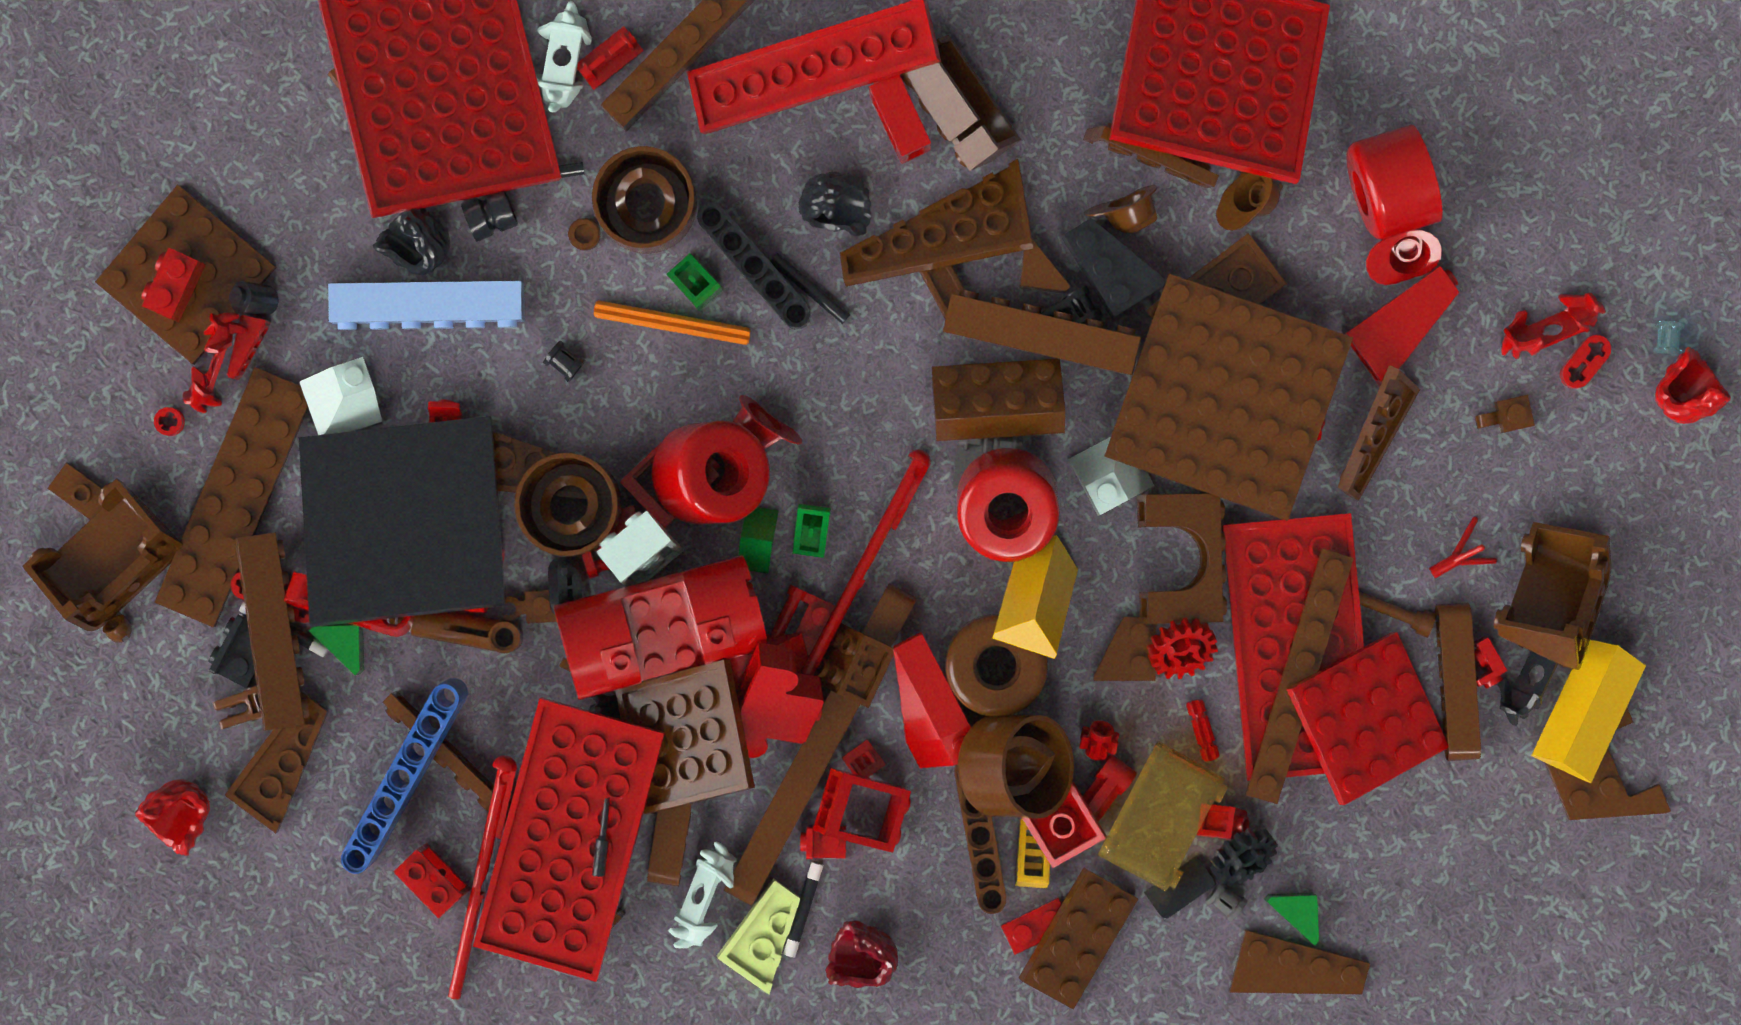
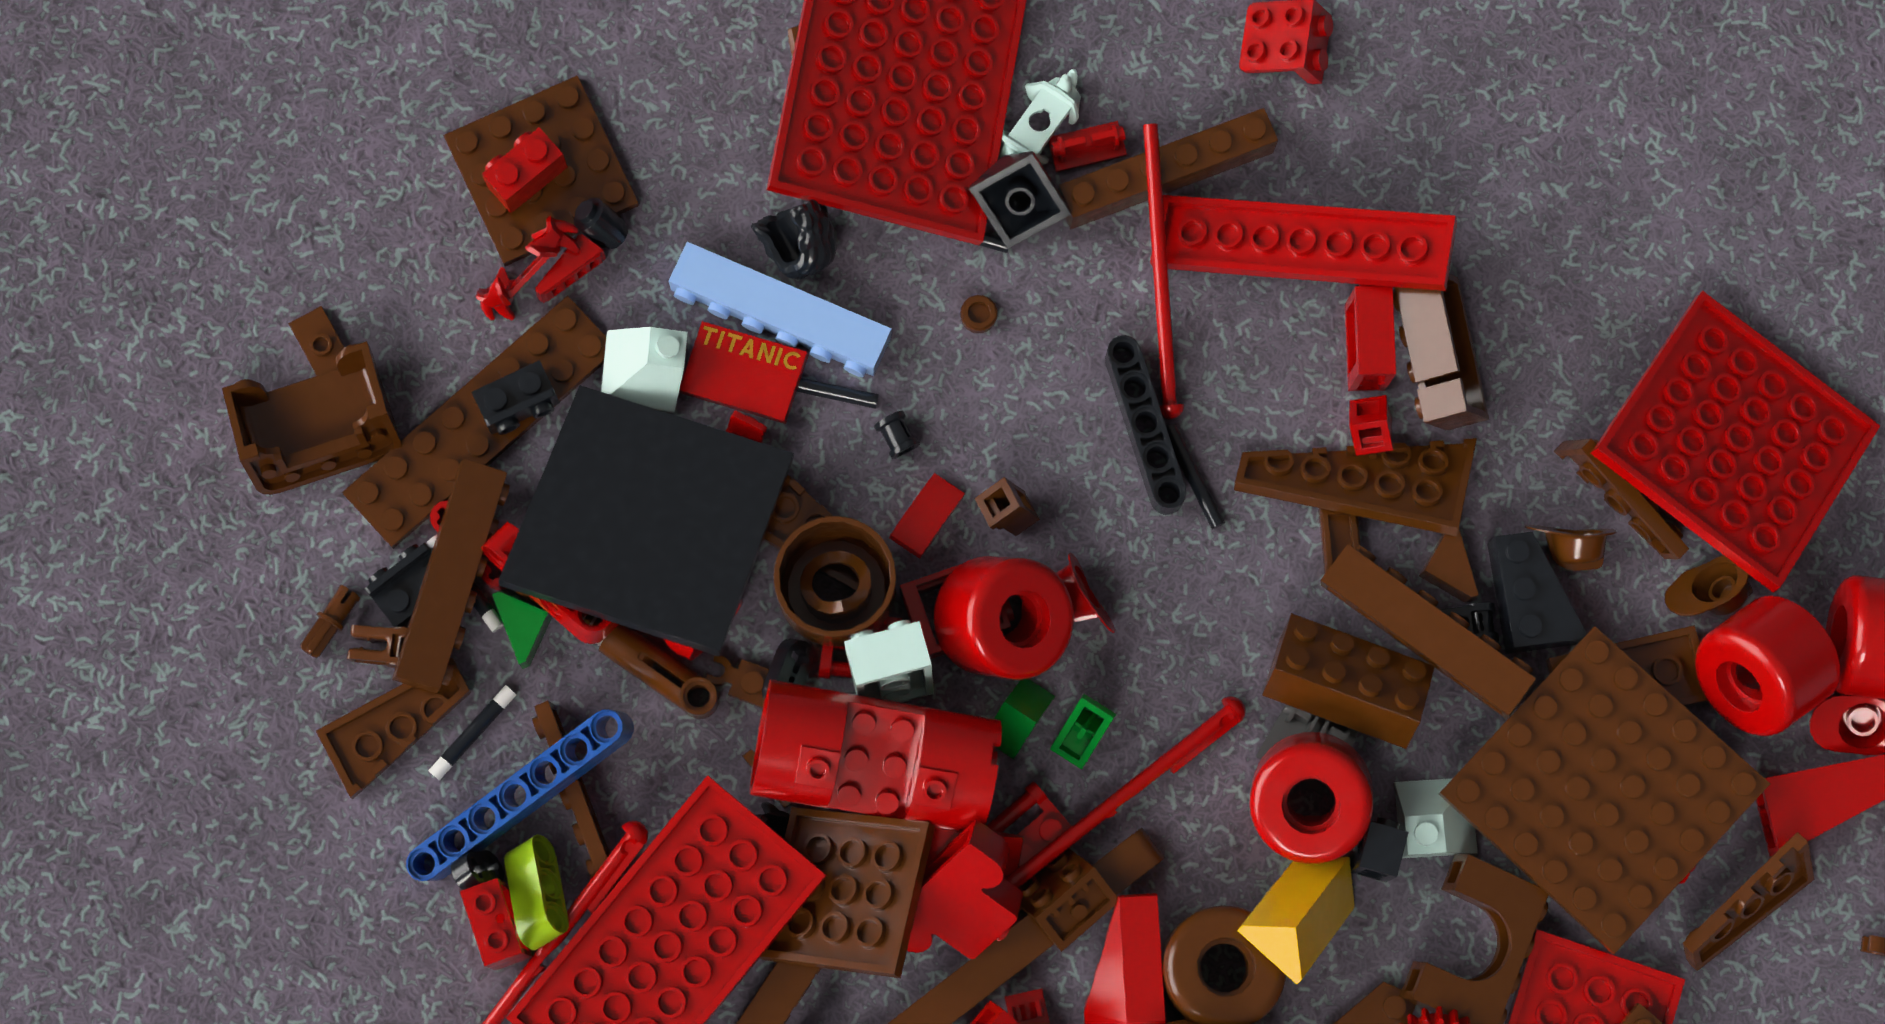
camera: 15 degrees right, 10 degrees down
(117, 628) = (289, 502): reddish brown hinge -> none
(174, 430) = (450, 300): red bush -> none
(175, 814) = (253, 726): red hair -> none
(193, 707) = (329, 622): none -> reddish brown axle
(253, 469) = (516, 398): none -> black bracket
(344, 741) = (472, 732): none -> black bar
(398, 846) = (476, 869): none -> black beam
(421, 365) = (743, 372): none -> red tile
(451, 841) = (536, 892): none -> lime beam
(489, 214) = (888, 247): black wheel -> none
(489, 350) = (838, 393): none -> black bar
(573, 130) = (1019, 197): none -> black slope
(602, 843) = (701, 967): black piece -> none
(616, 414) = (926, 515): none -> red slope
(637, 167) = (1067, 265): reddish brown piece -> none
(672, 322) = (1030, 446): orange axle -> none
(675, 382) = (1007, 507): none -> reddish brown brick
(694, 282) = (1074, 415): green slope -> none
(767, 242) = (1169, 406): none -> red bar
(836, 203) = (1263, 397): black hair -> none
(930, 187) = (1370, 425): none -> red brick
(1077, 520) = (1380, 851): none -> black brick
(1314, 245) = (1767, 666): none -> red piece

